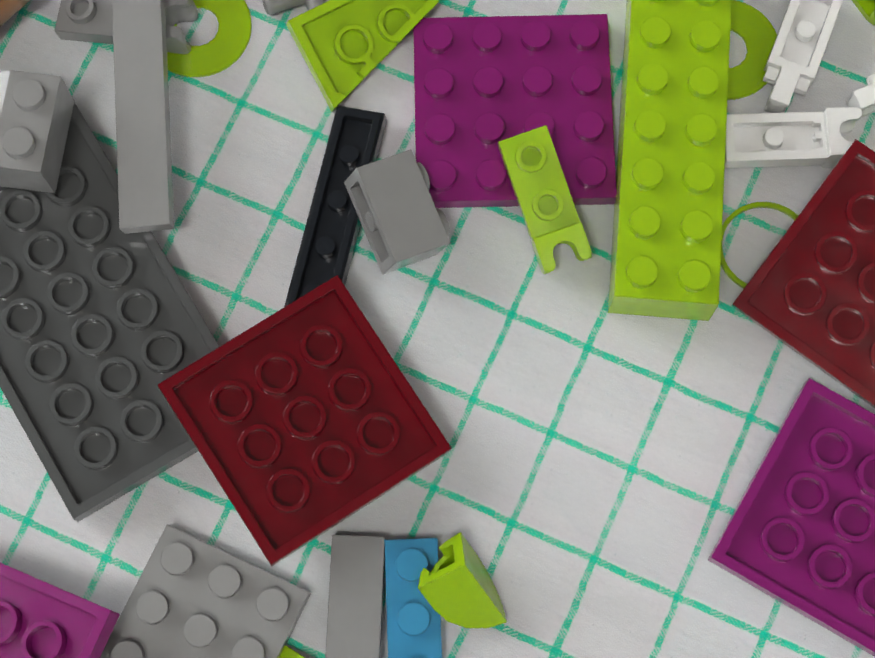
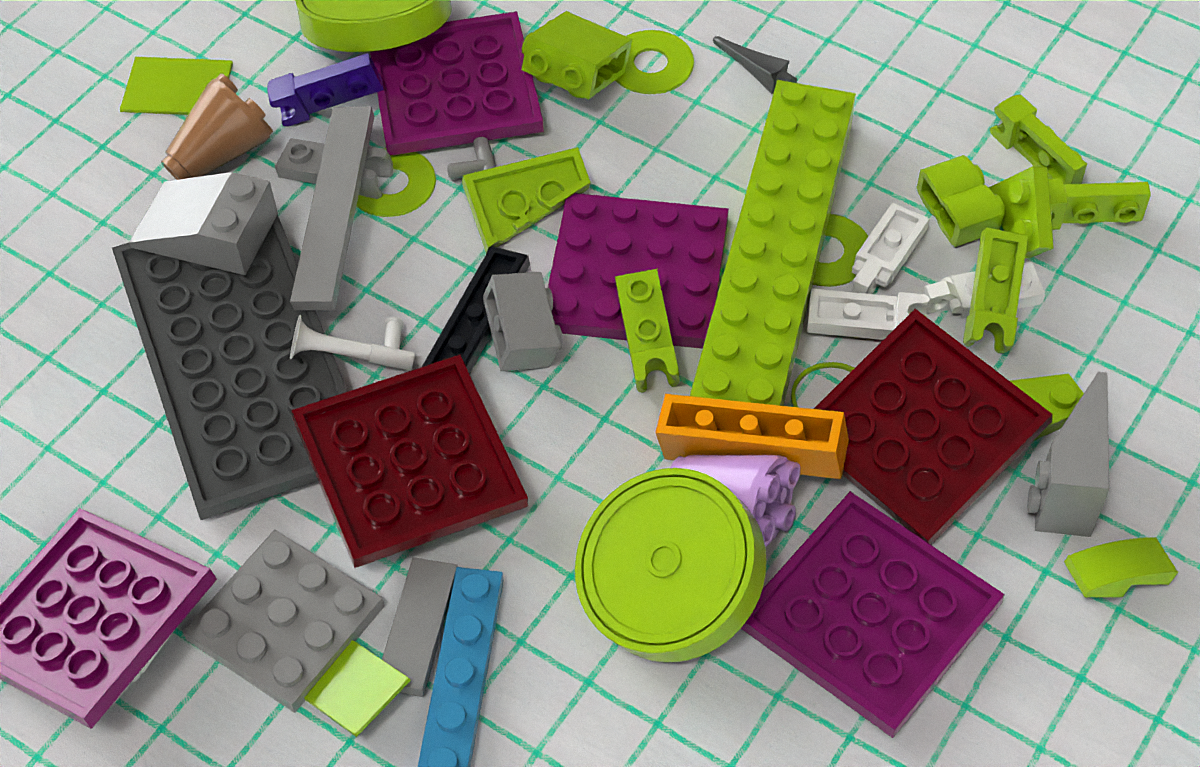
camera: 10 degrees right, 20 degrees down
(249, 273) = (387, 355): none -> white piece
(462, 587) = (514, 611): lime brick -> none
(631, 516) = (670, 565): none -> lime brick
(685, 401) = (759, 481): none -> lavender cone
(694, 332) = (730, 427): none -> light orange brick

